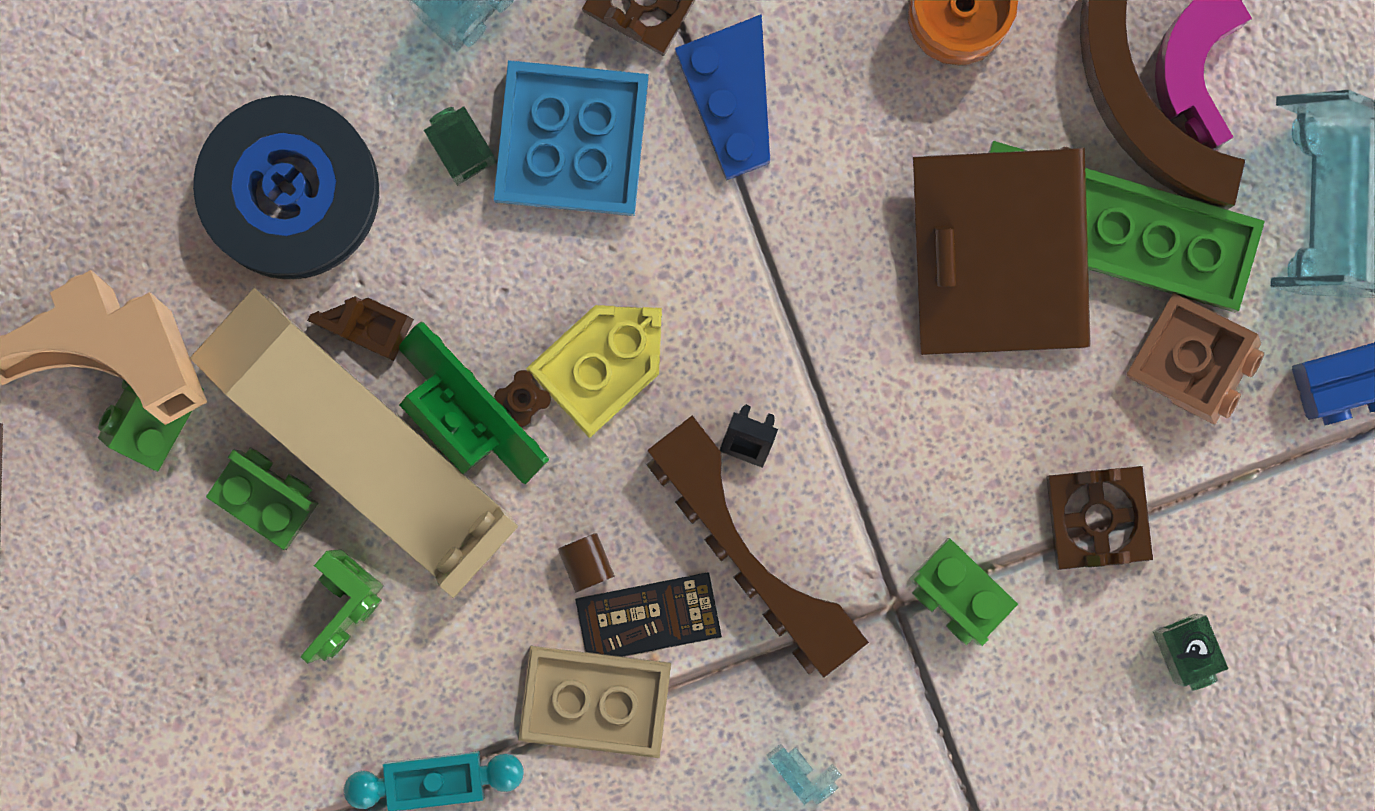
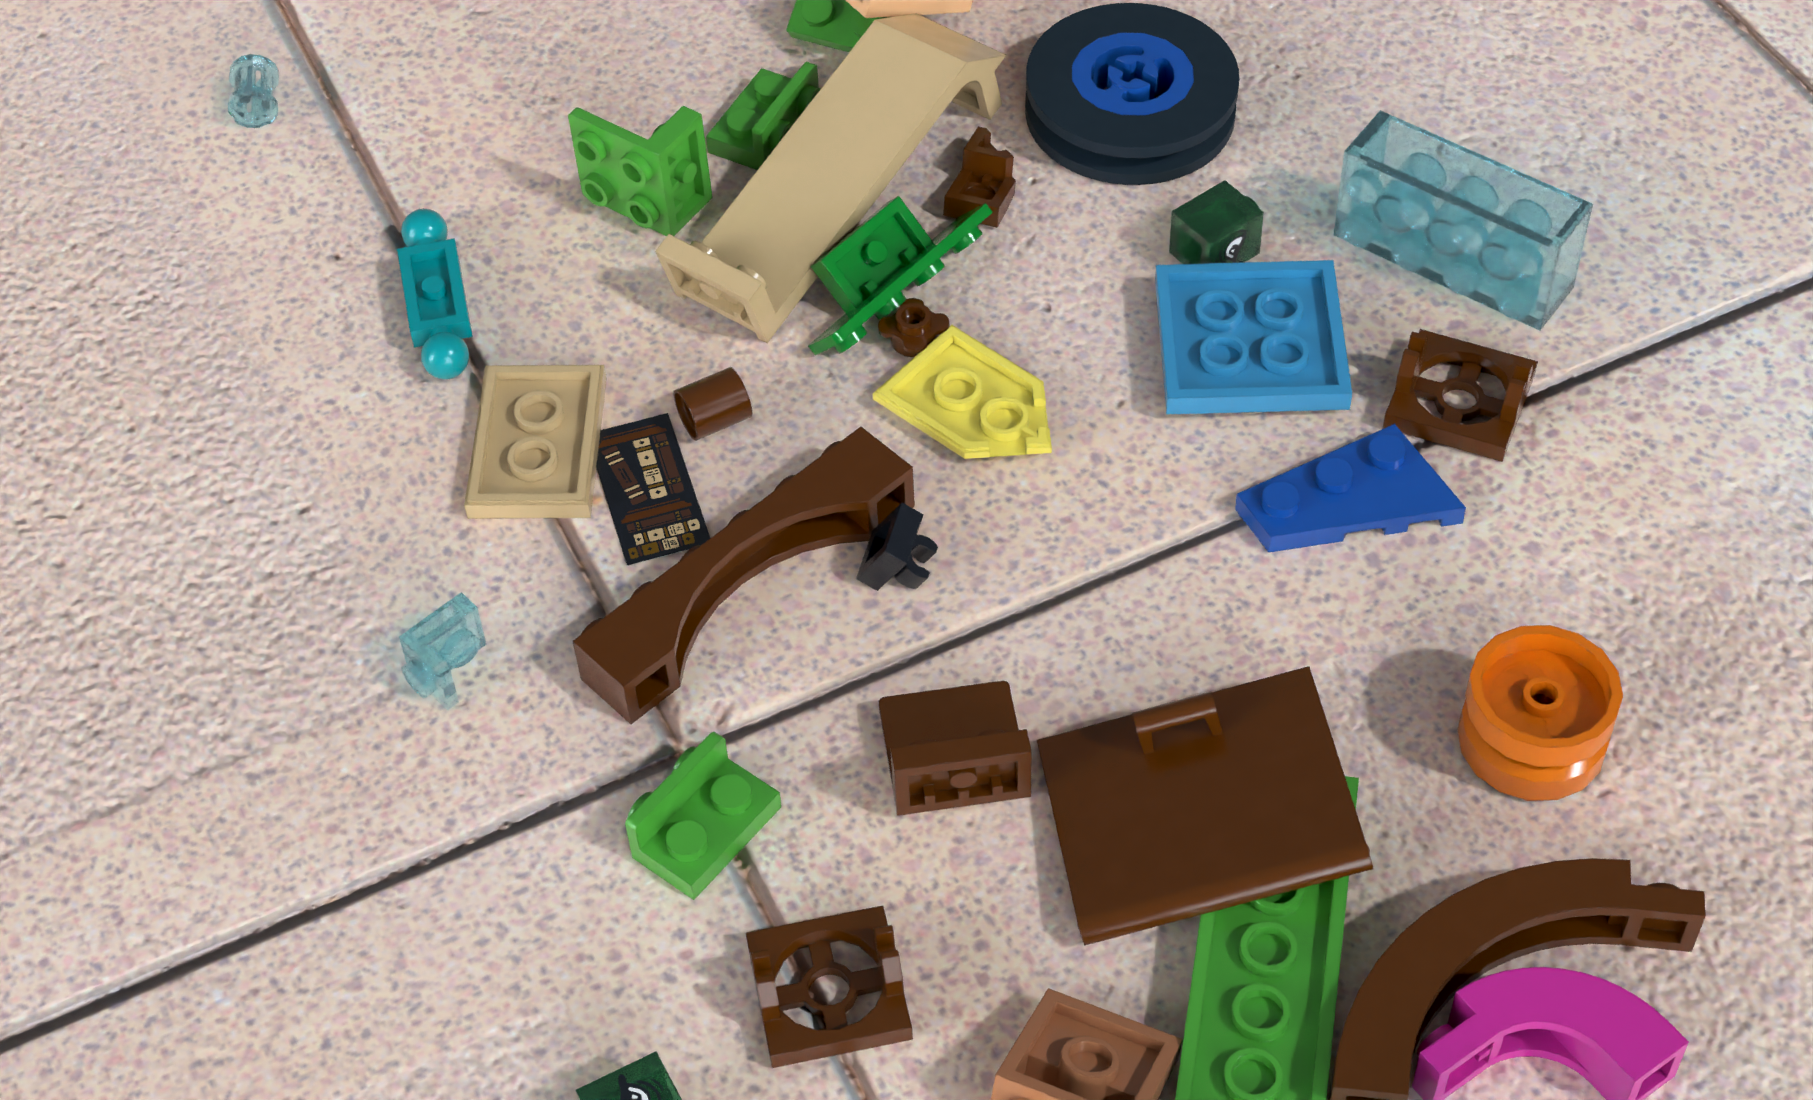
camera: 90 degrees right, 35 degrees down
(926, 413) = (955, 747): none -> reddish brown bracket

